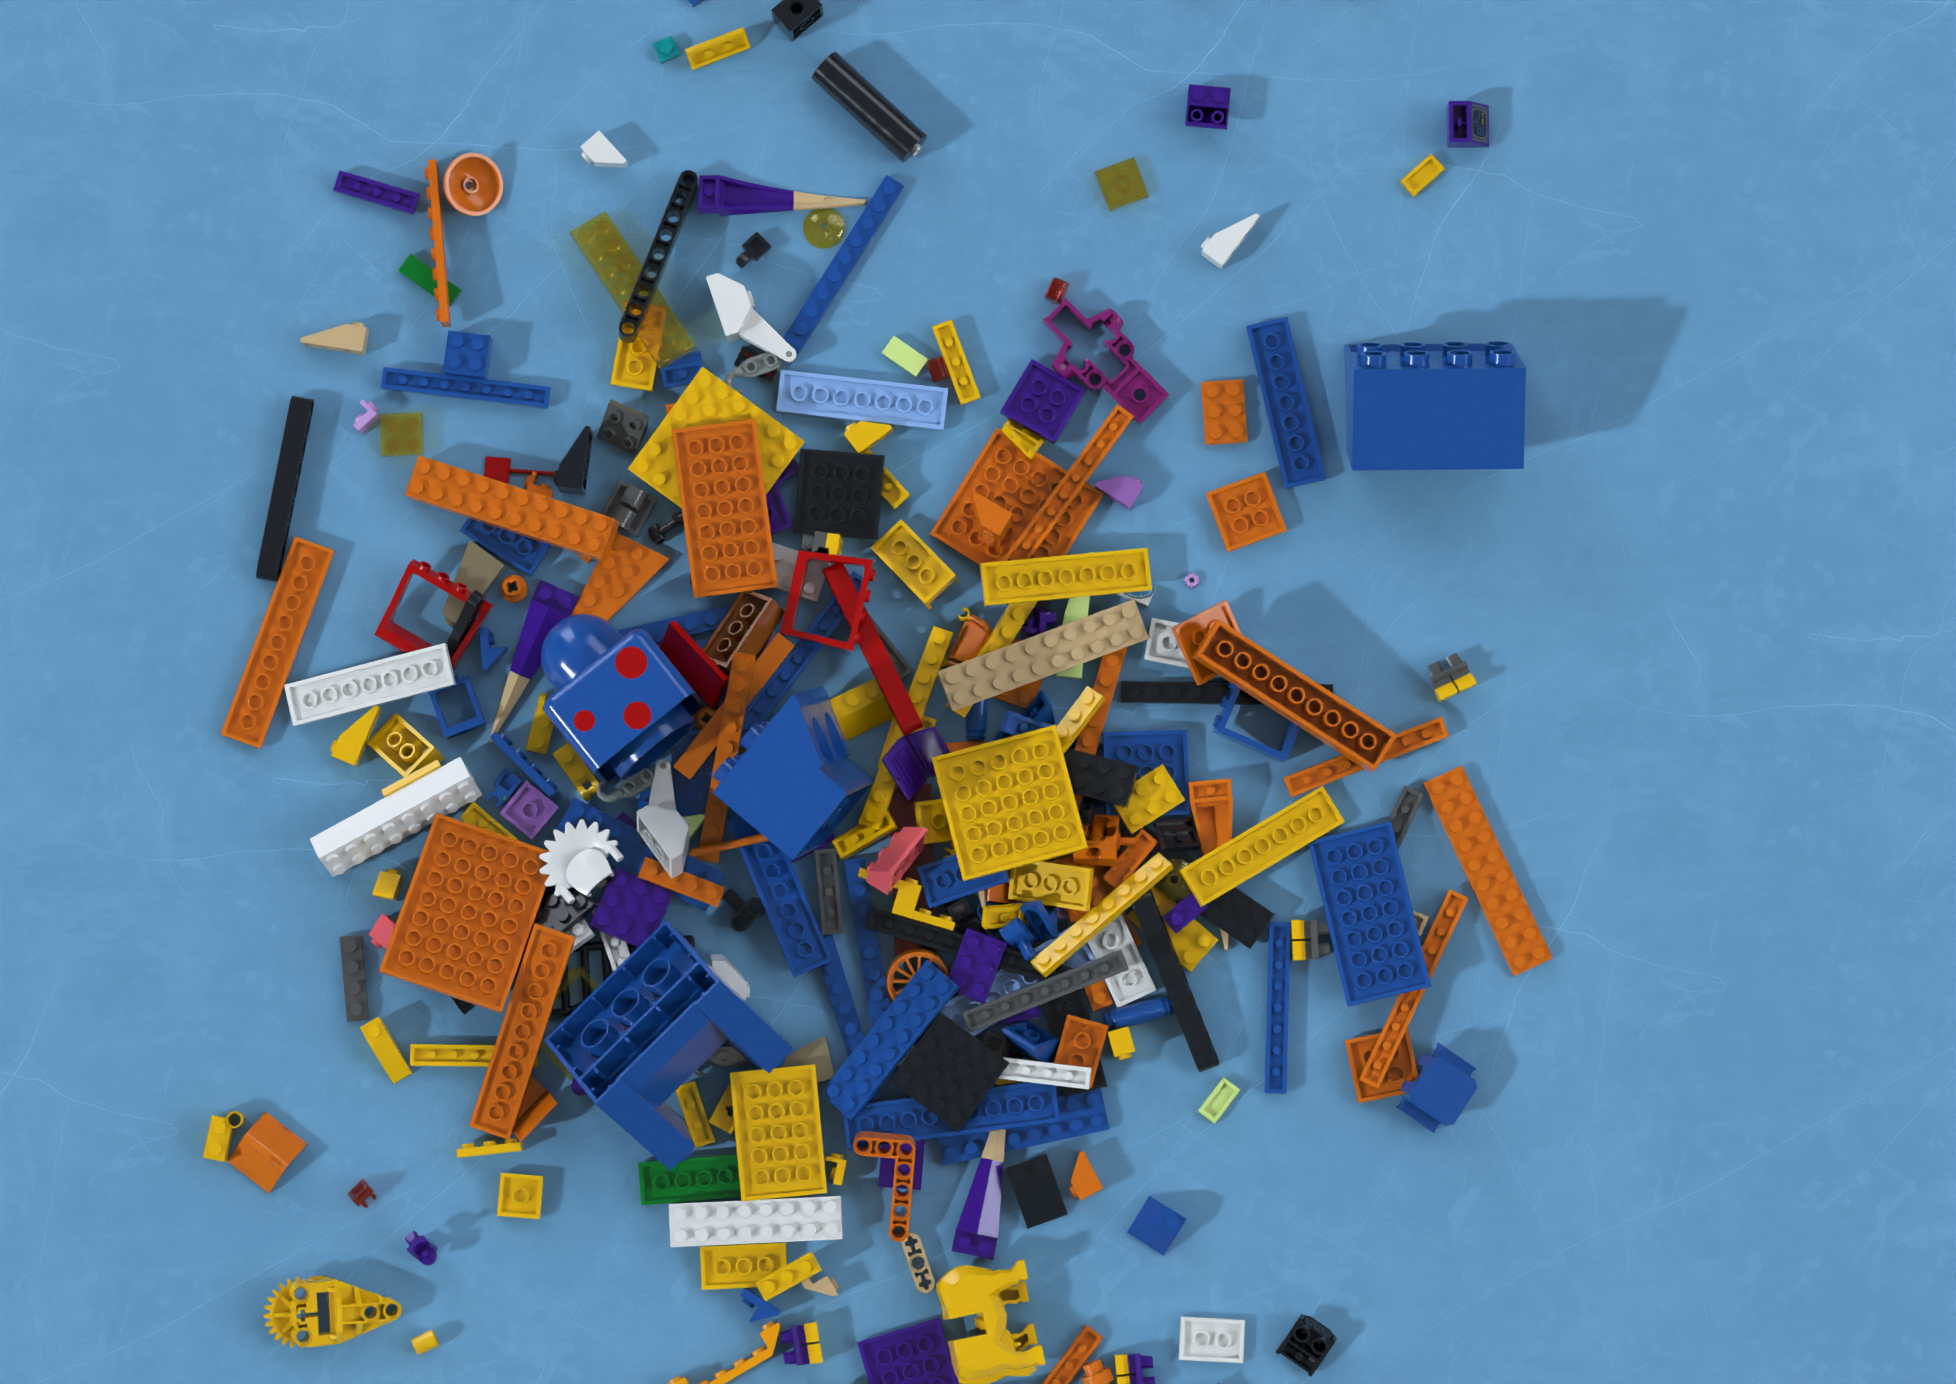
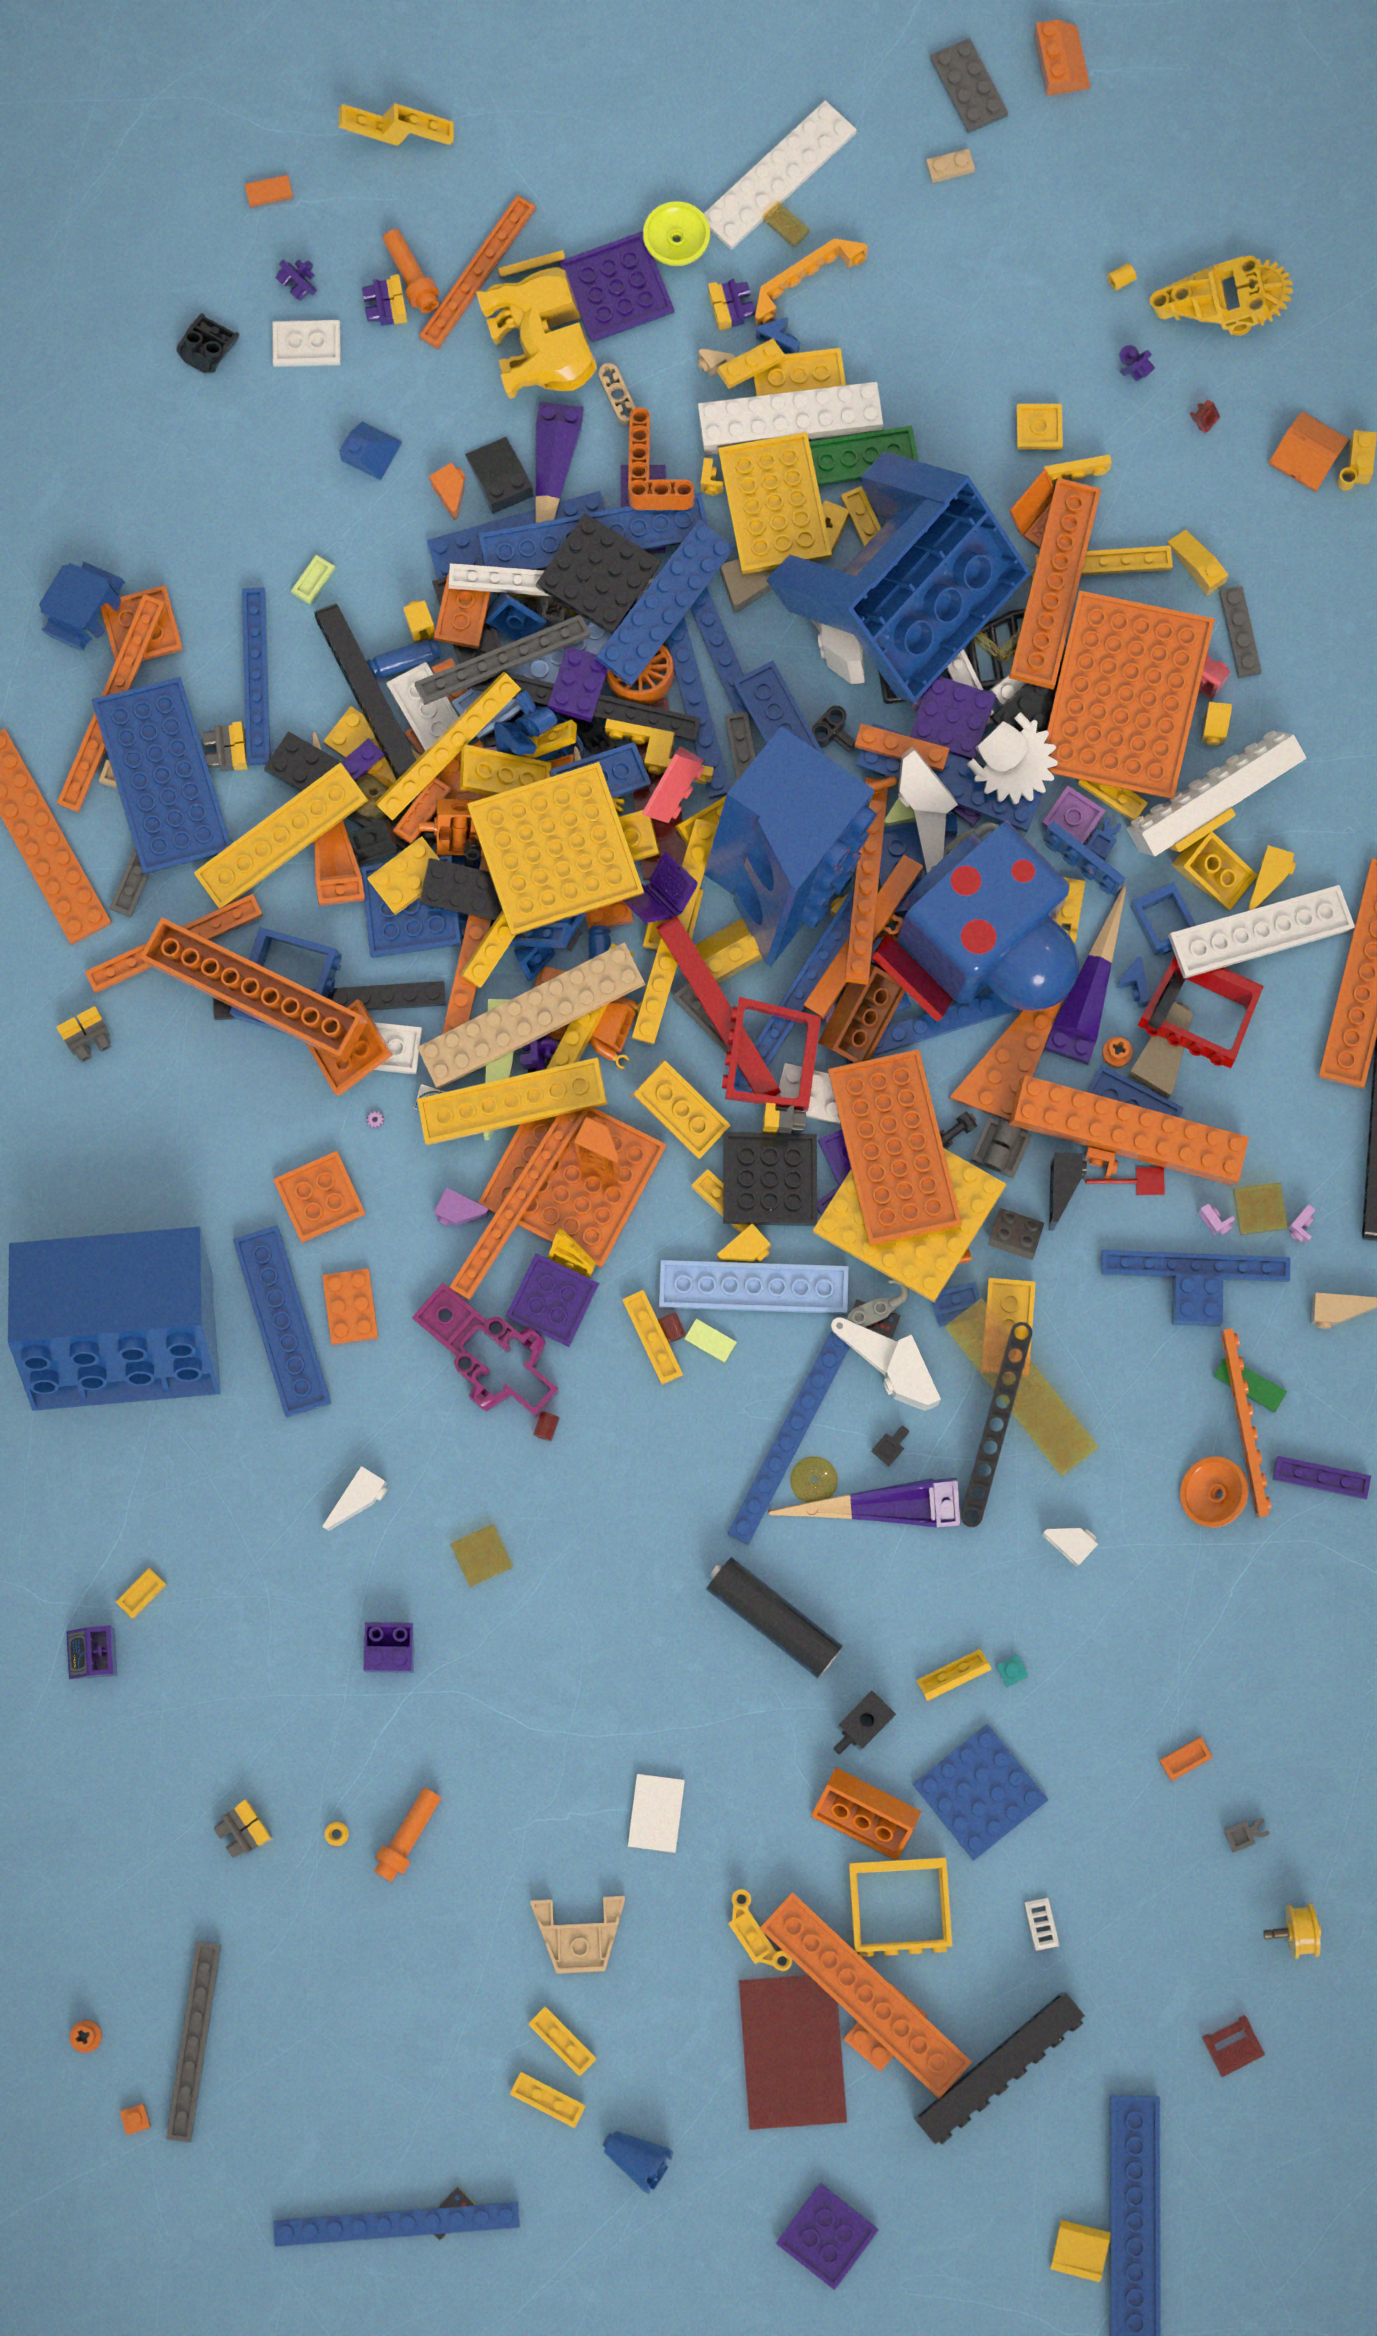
camera: 175 degrees right, 5 degrees down
(445, 429) = (1212, 1217): none -> lavender bracket

